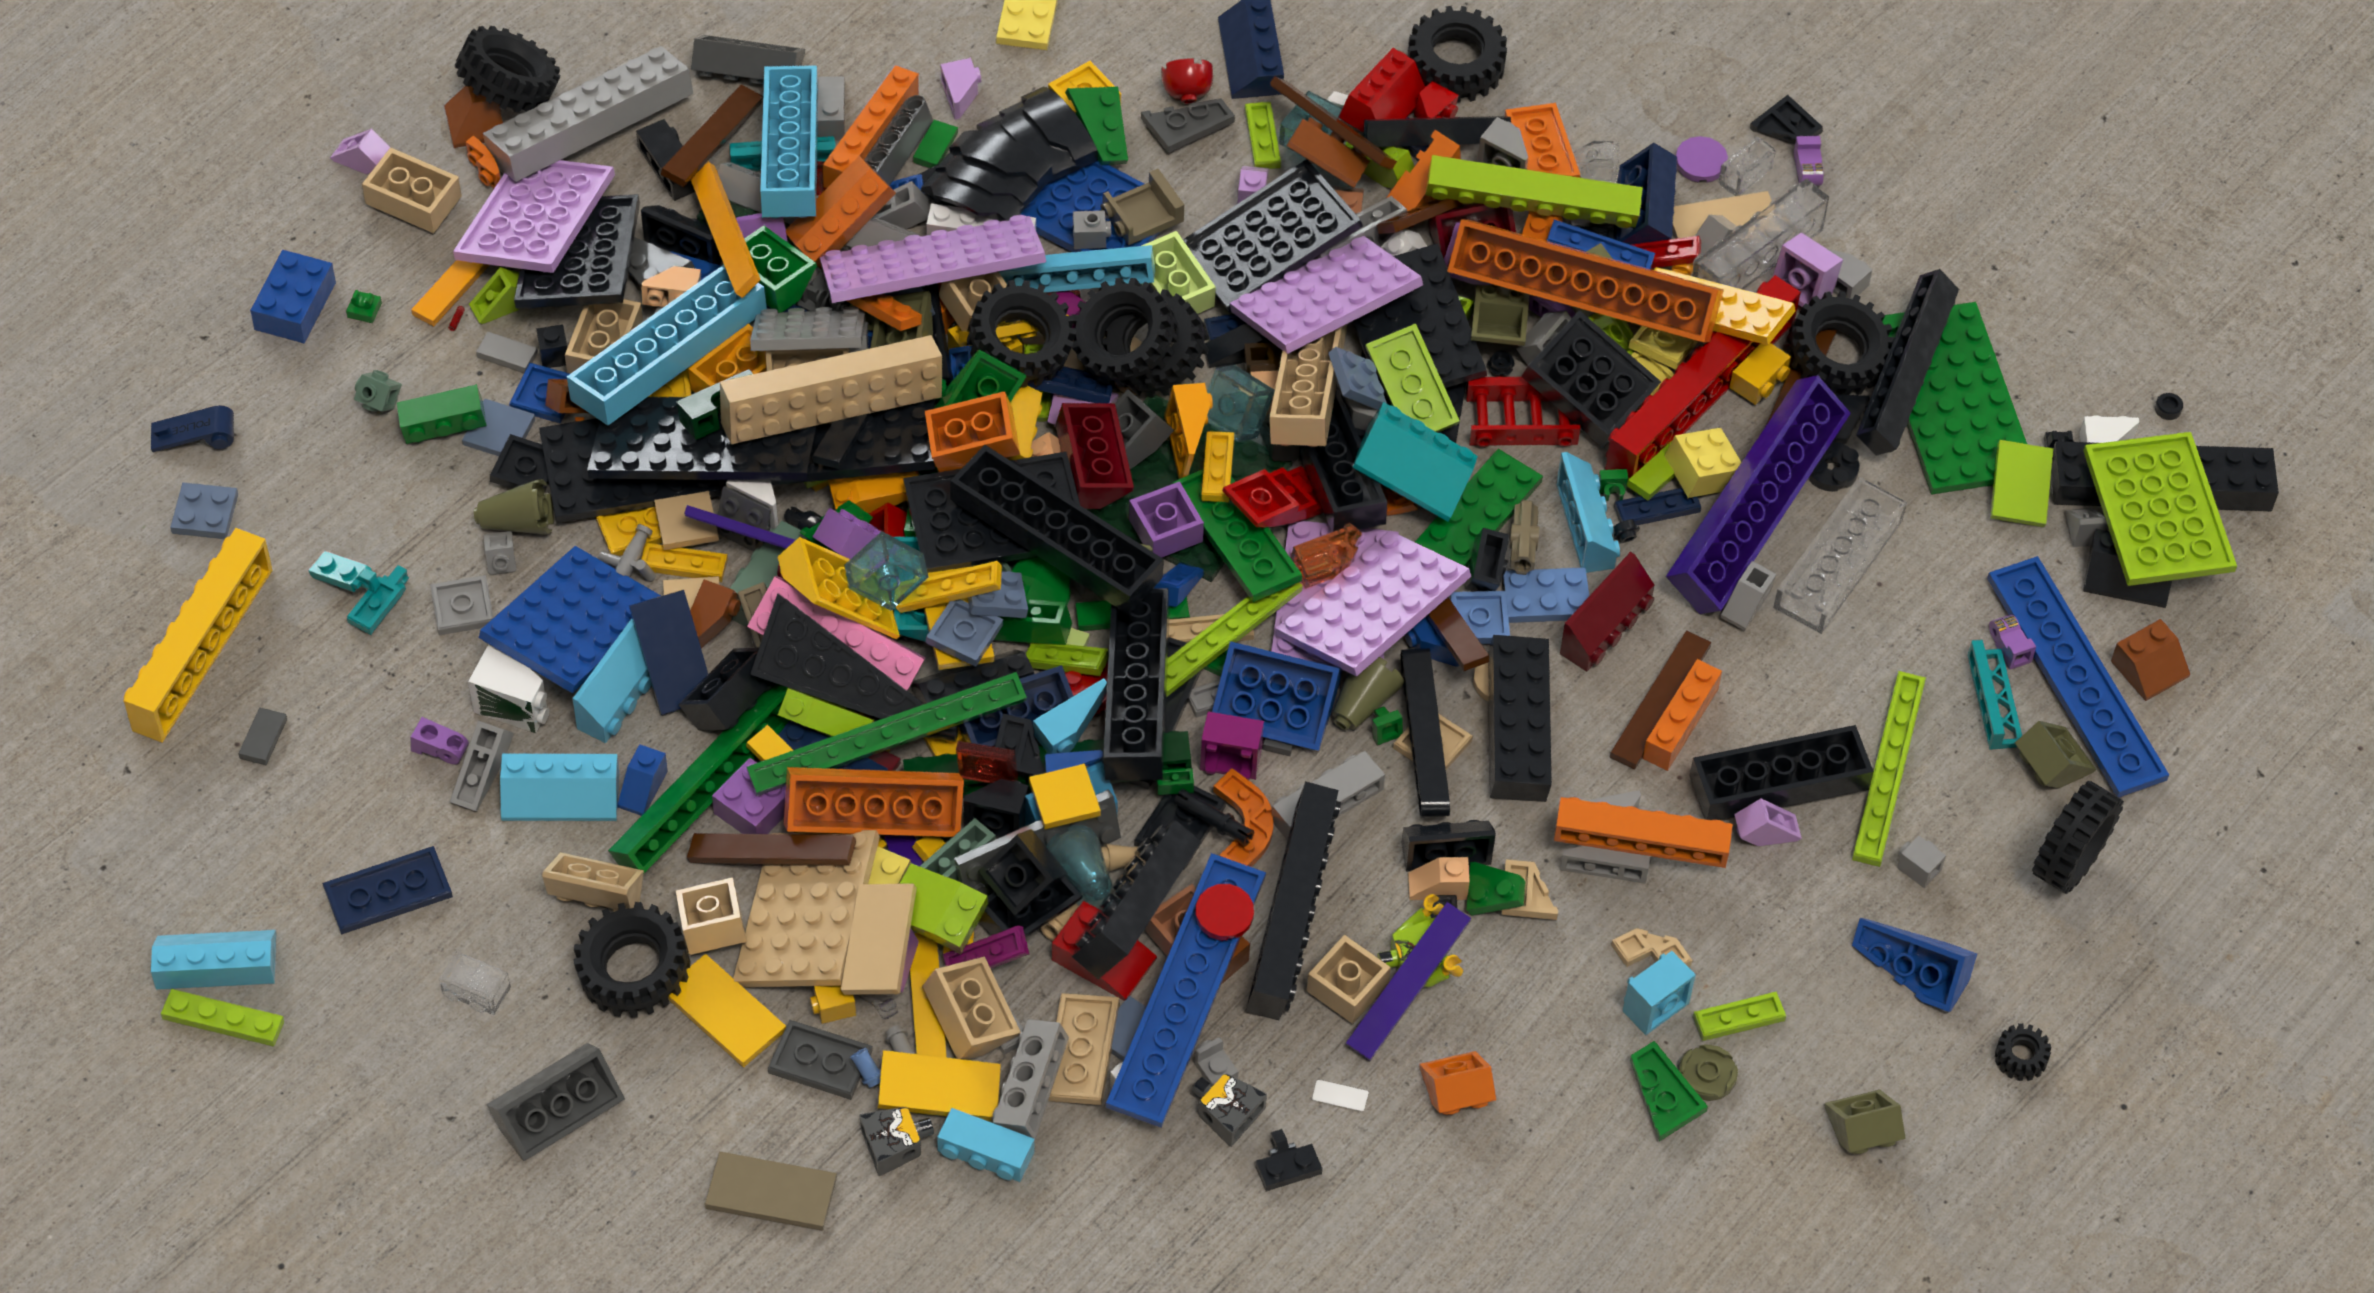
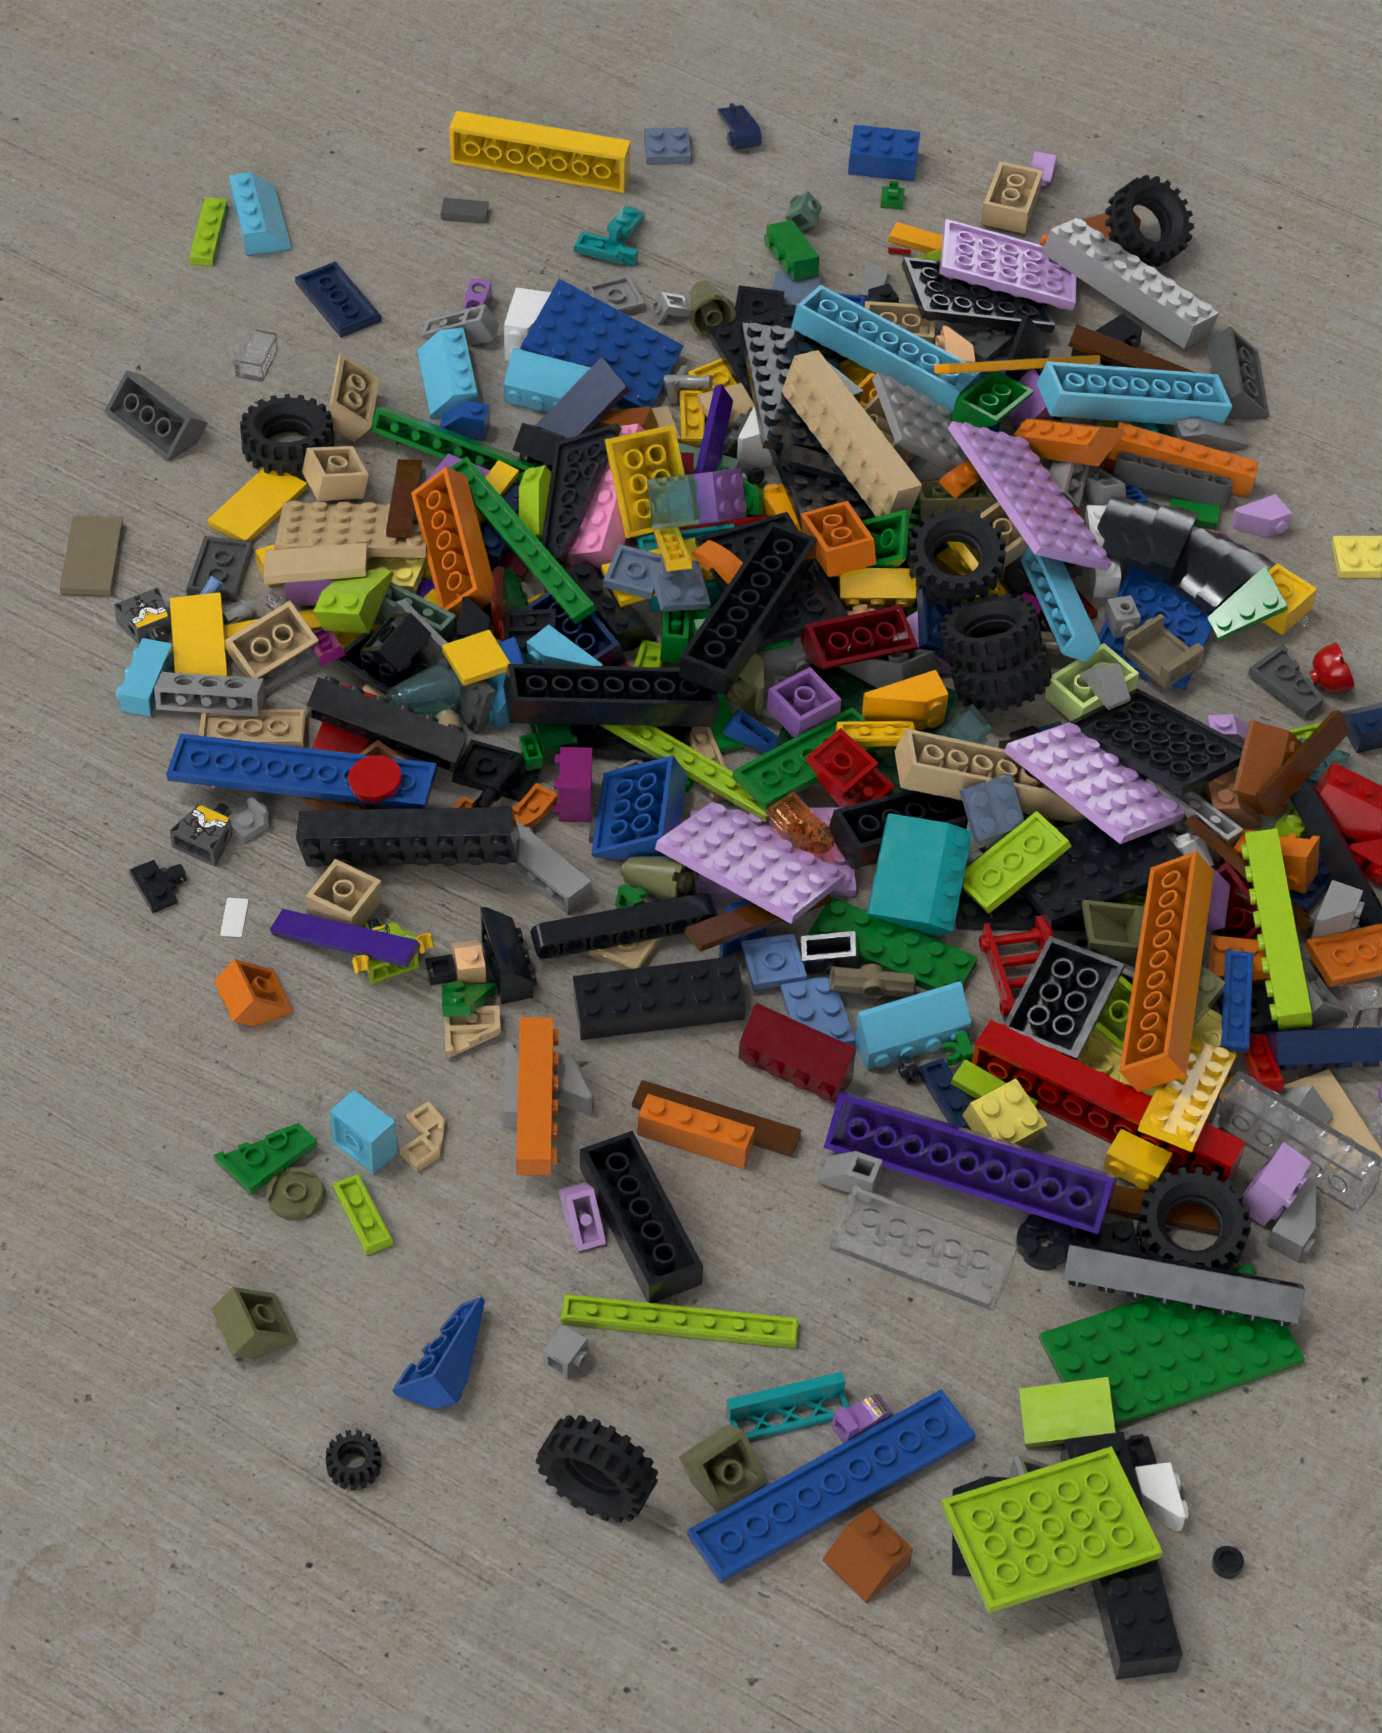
camera: 80 degrees right, 5 degrees down
(973, 546) = (715, 556): none -> orange slope
(1191, 257) = (1108, 684): none -> light grey slope

